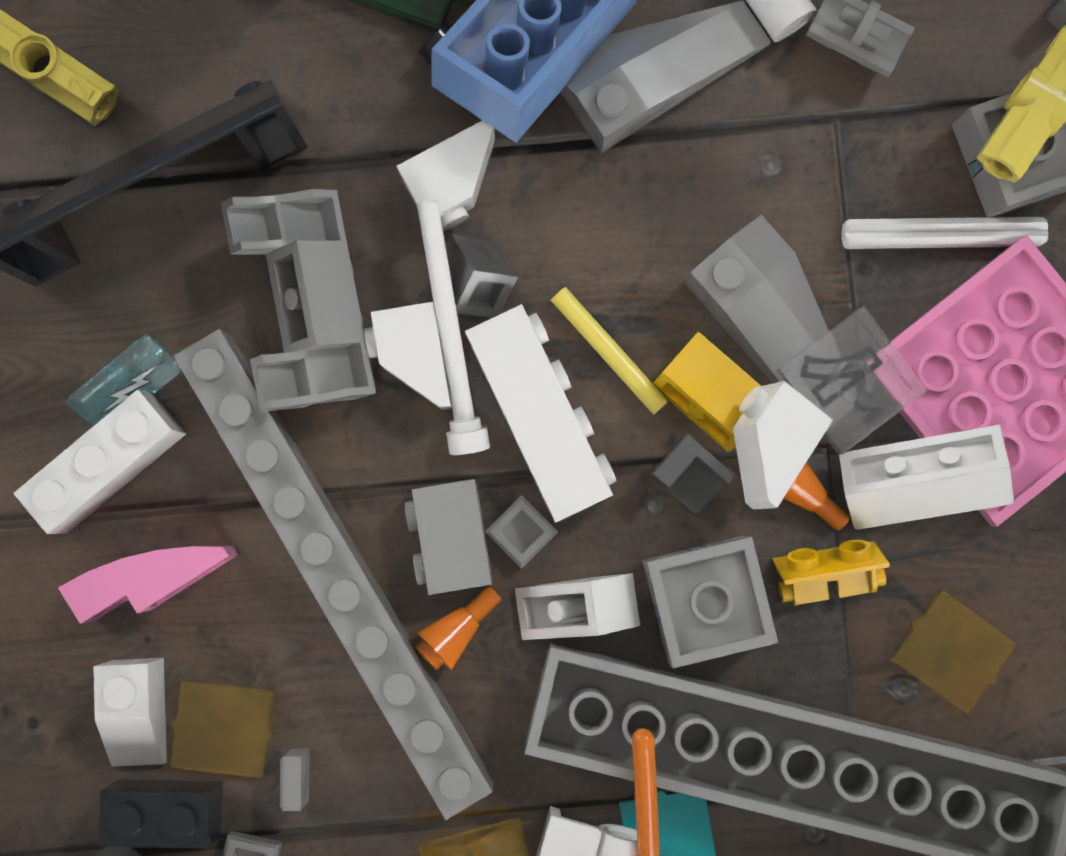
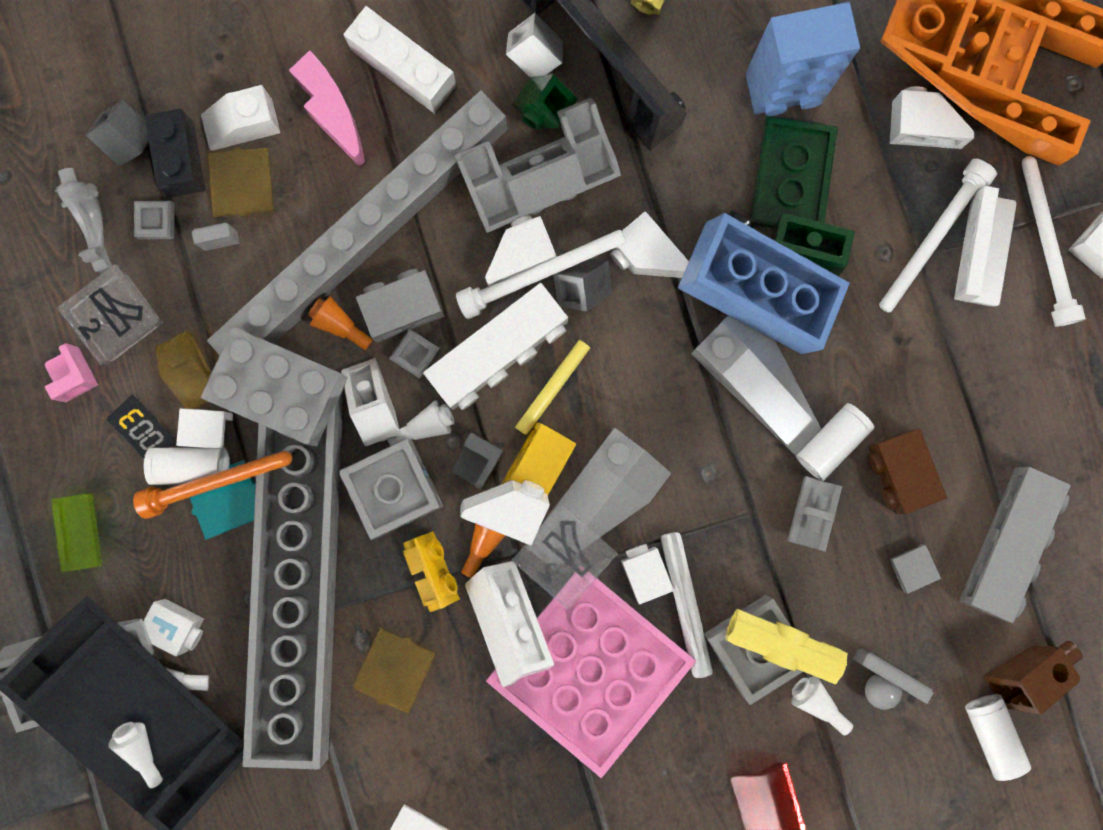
camera: 80 degrees right, 0 degrees up
(126, 271) = (535, 47): none -> white panel
(142, 366) = (468, 69): clear light blue slope -> none
(207, 273) = (542, 100): none -> dark green brick
(539, 734) = (274, 387): none -> light grey brick
(623, 528) = (430, 422): none -> white cone
(894, 276) = (646, 573): none -> white brick

